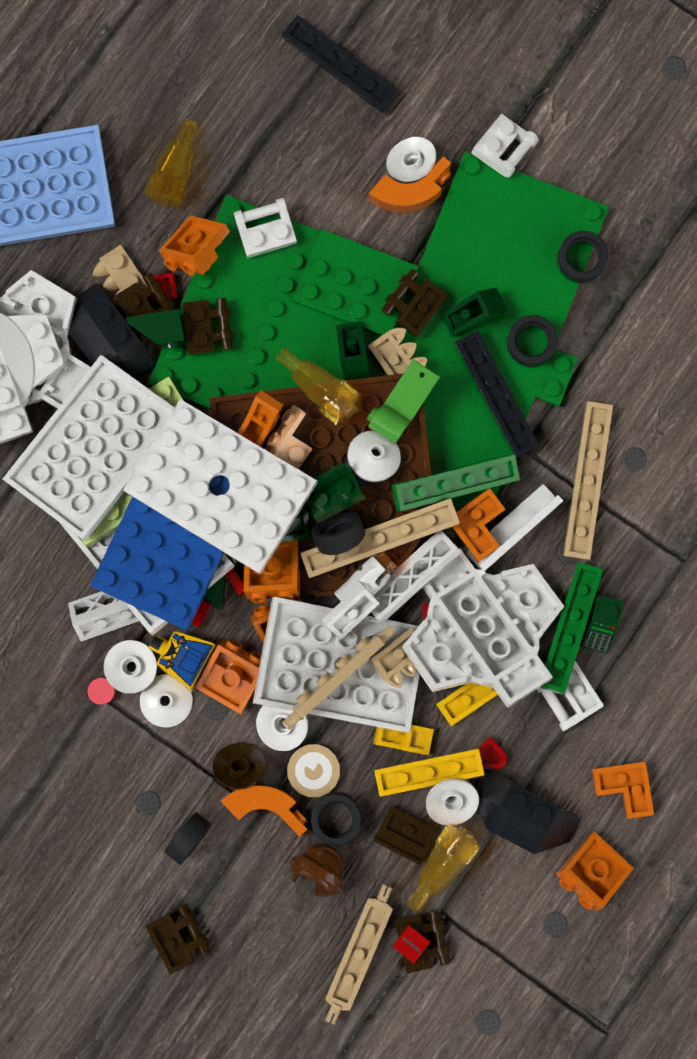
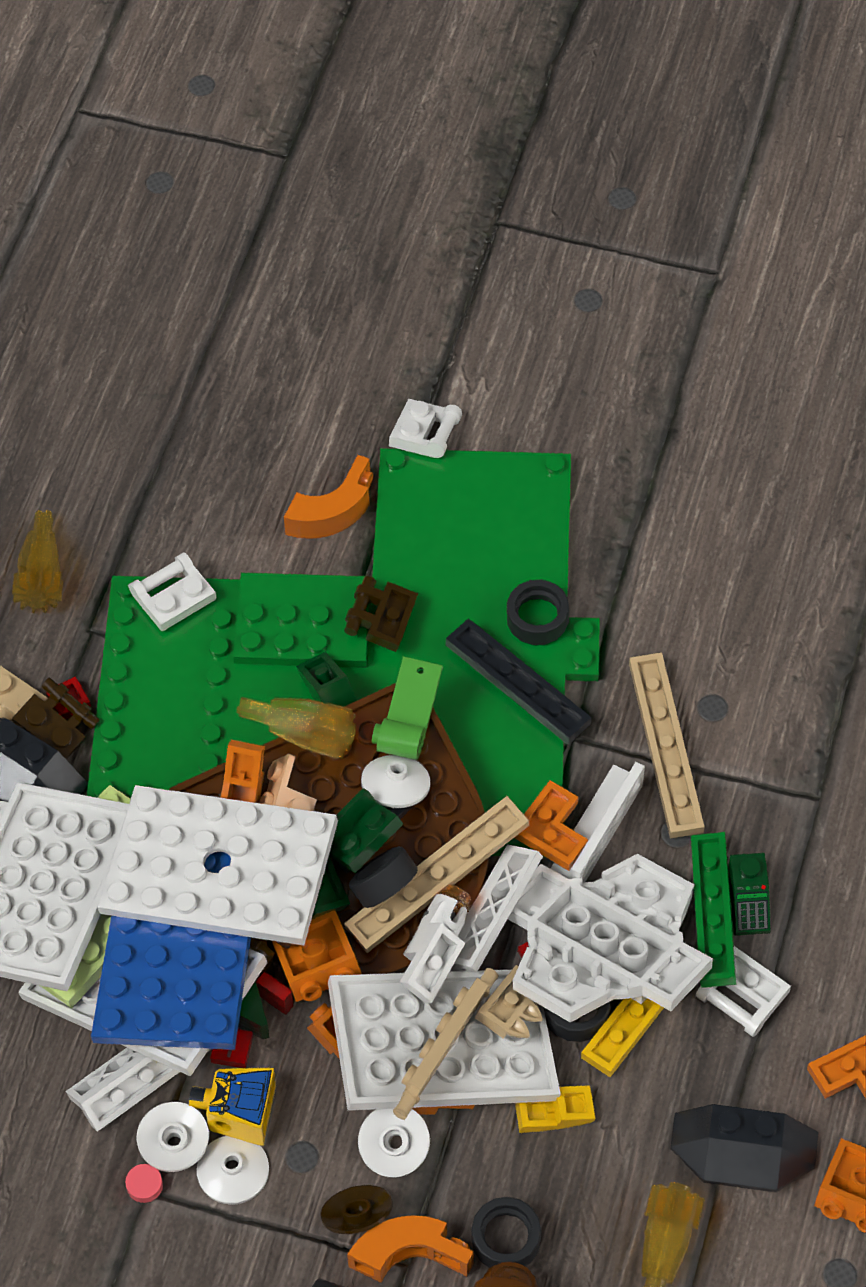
camera: 20 degrees left, 25 degrees down
(160, 327) = (80, 730): dark green slope -> none
(194, 245) = (92, 635): orange plate -> none
(199, 327) = (129, 721): dark brown plate -> none
(230, 675) = (307, 1104): orange plate -> none
(313, 770) = (454, 1187): tan tile -> none
(339, 63) = (200, 404): black plate -> none
(391, 355) = (370, 673): tan plate -> none
(405, 835) = (603, 1225): dark brown plate -> none
(411, 159) = (321, 472): white dish -> none
(429, 772) = (604, 1135): yellow plate -> none
(452, 810) = (663, 1160): white dish -> none
(455, 482) = (510, 779): green plate -> none
(474, 311) = (456, 600): dark green slope -> none
(492, 754) = (672, 1095): red tile -> none
(590, 238) = (563, 487): black tyre -> none

